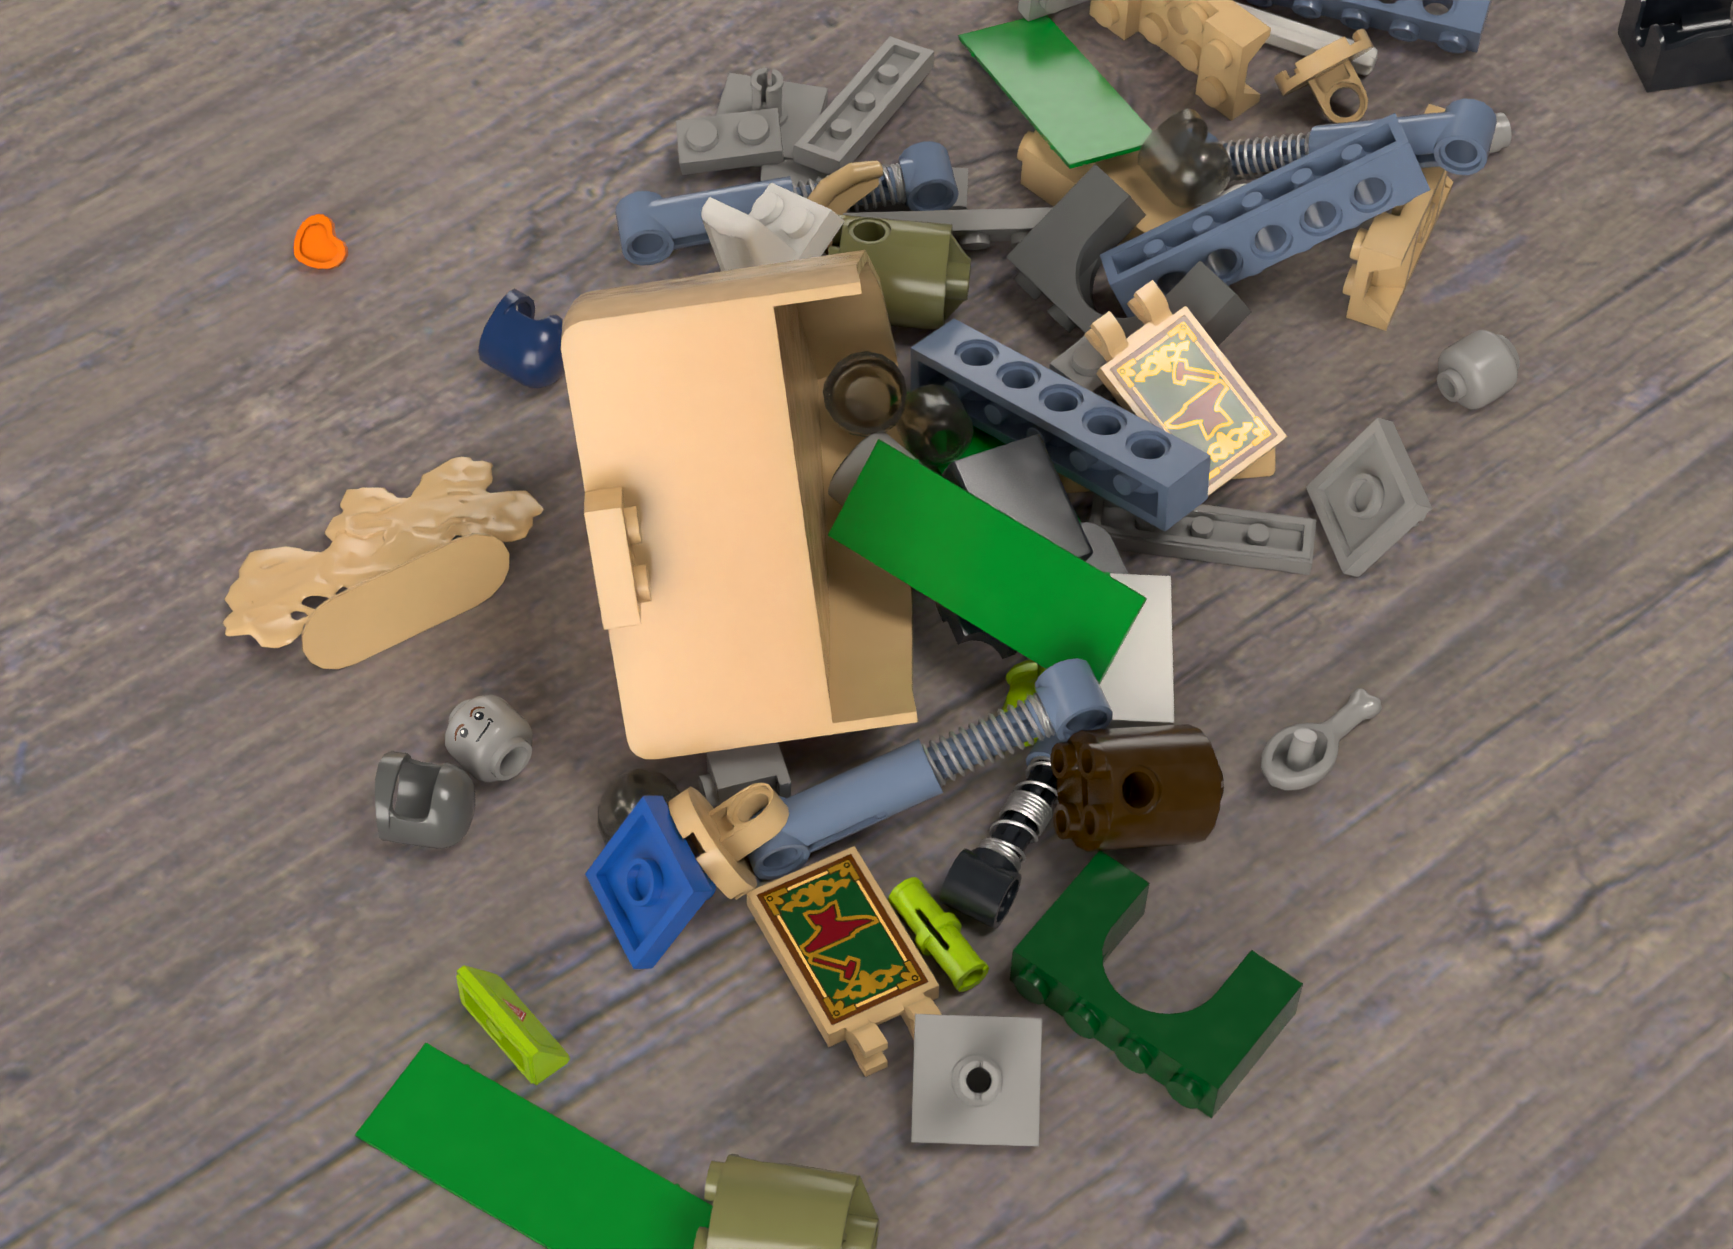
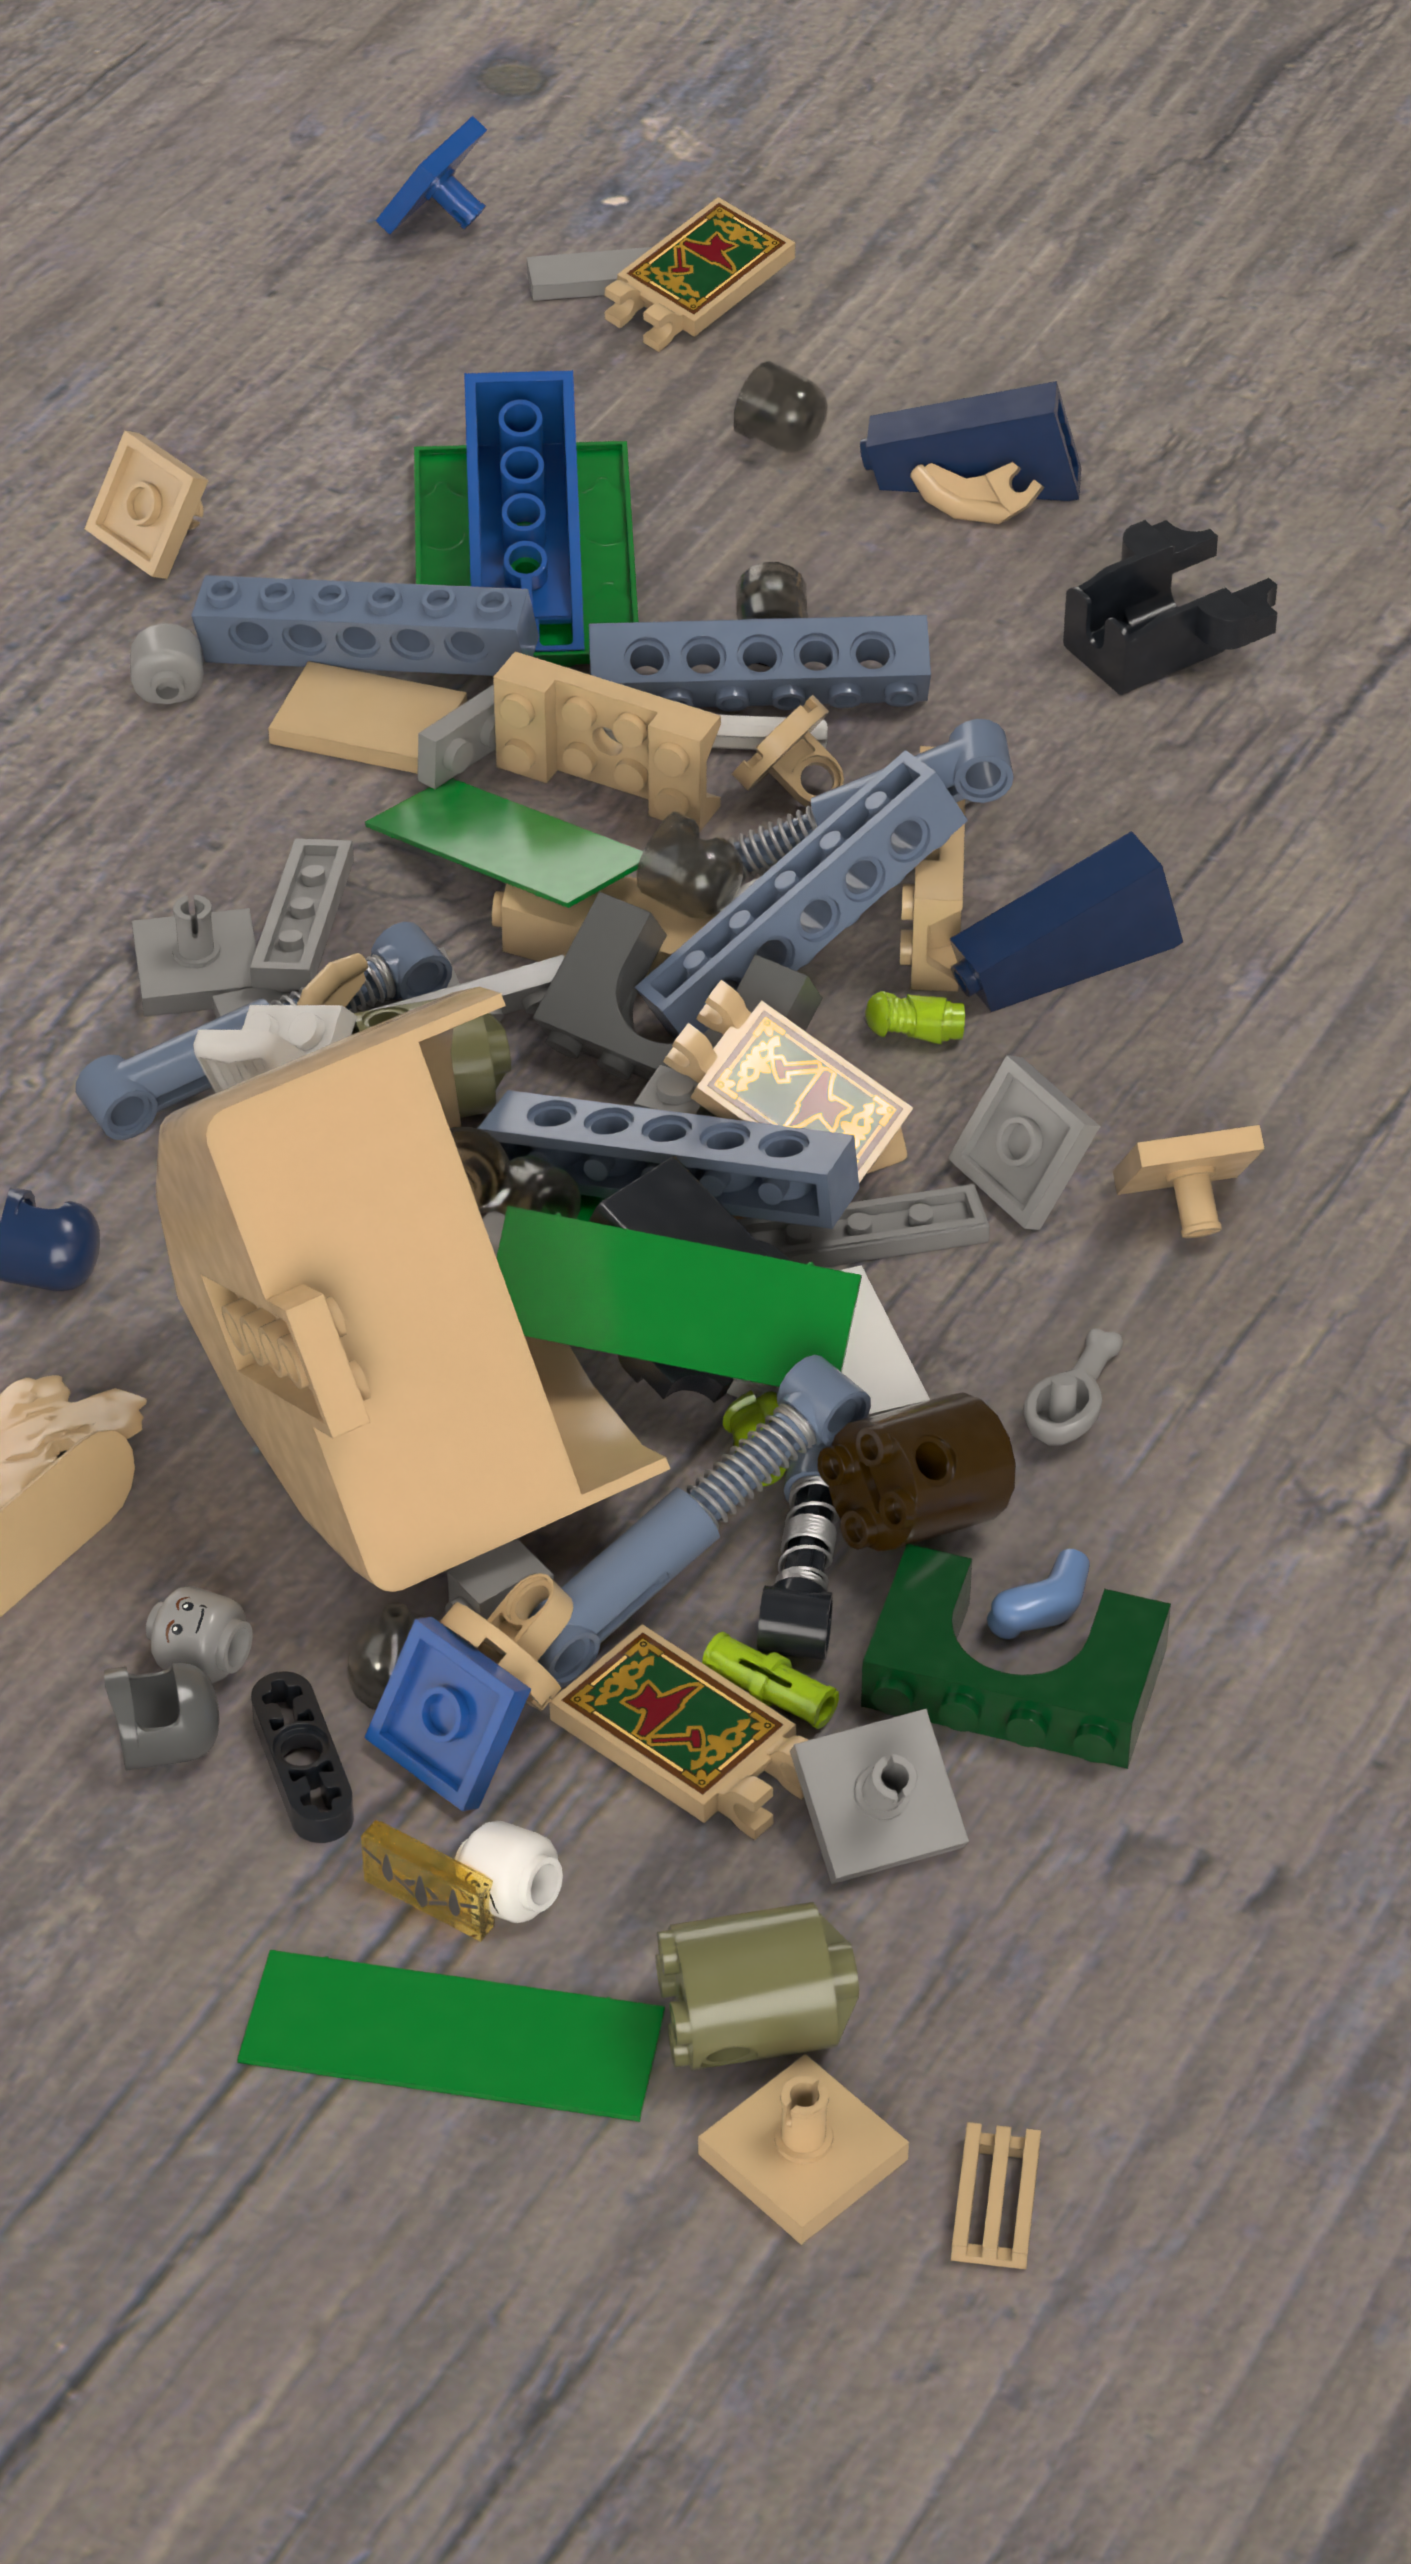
camera: 20 degrees left, 10 degrees down
(510, 1024) = (354, 1903): lime slope -> none
(539, 895) = (297, 1781): none -> black beam
(572, 1027) = (427, 1879): none -> clear yellow tile
(639, 1043) = (521, 1867): none -> white head
(729, 141) = (170, 986): light grey plate -> none
(1204, 937) = (1041, 1602): none -> medium blue arm
(1336, 346) = (916, 1016): none -> lime arm
(1478, 369) = (1076, 995): light grey head -> none
(1503, 567) = (1189, 1167): none -> tan tile
(1527, 296) = (1070, 927): none -> dark blue slope

